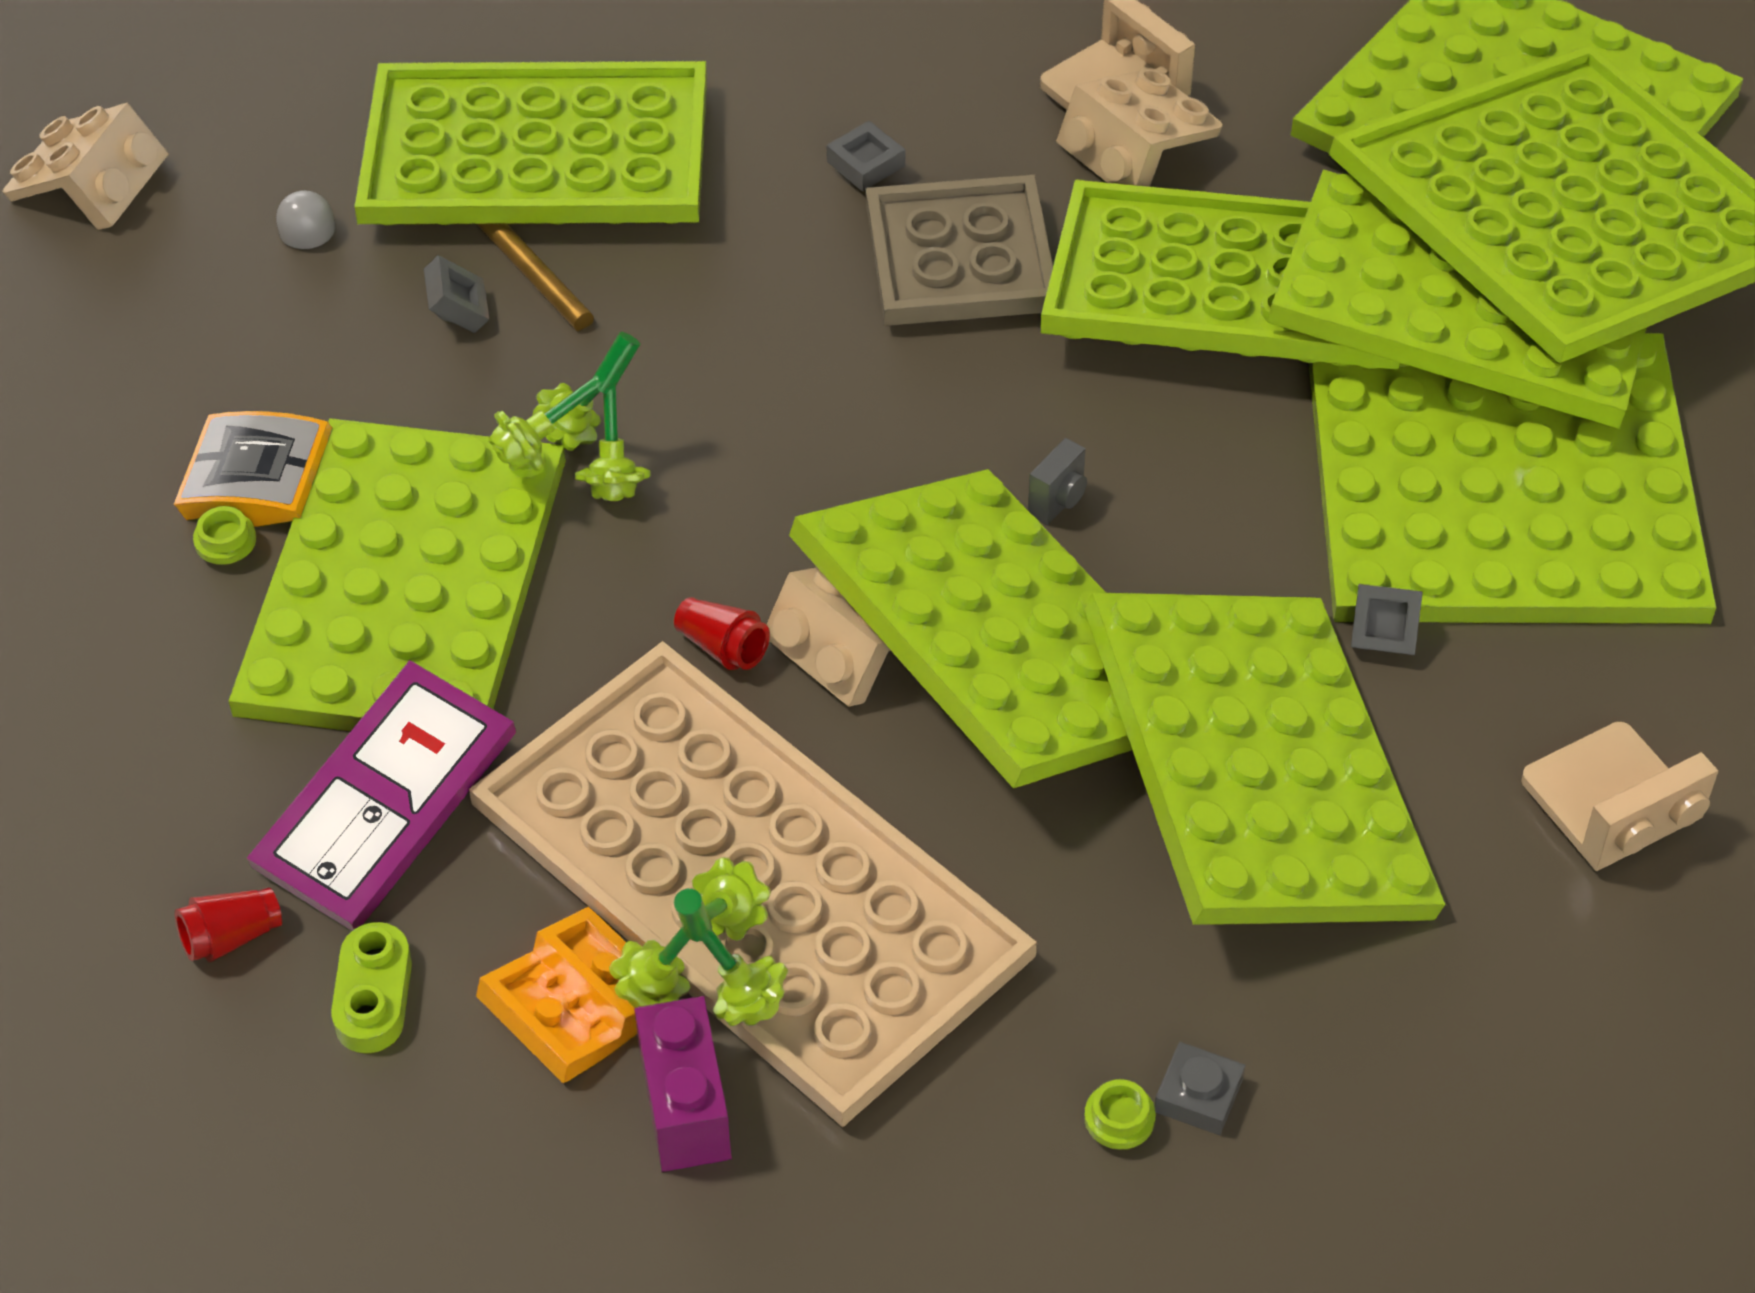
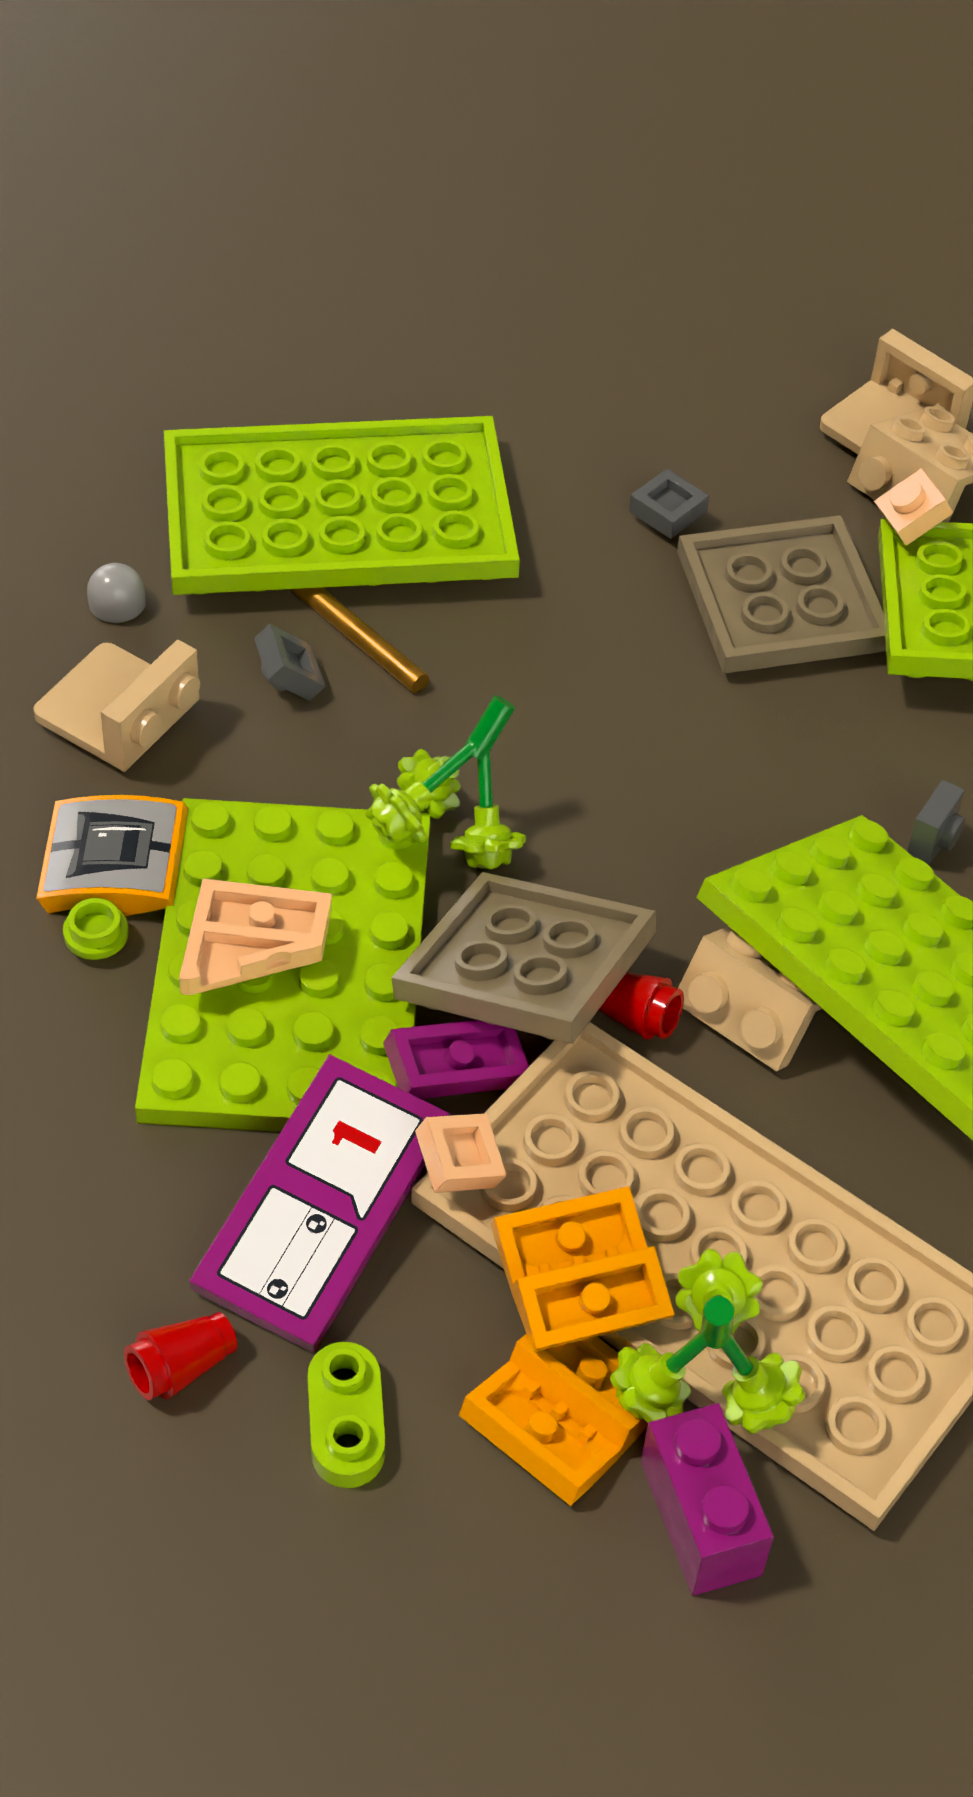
camera: 10 degrees left, 0 degrees up
(289, 323) = (120, 702): none -> tan bracket
(361, 545) = (252, 933): none -> light nougat wing
(514, 757) = (460, 1152): none -> light nougat plate
(535, 672) = (455, 1058): none -> magenta plate
(607, 868) = (581, 1268): none -> light orange slope
(618, 582) = (525, 956): none -> dark tan plate
(1102, 168) = (913, 507): none -> light nougat plate

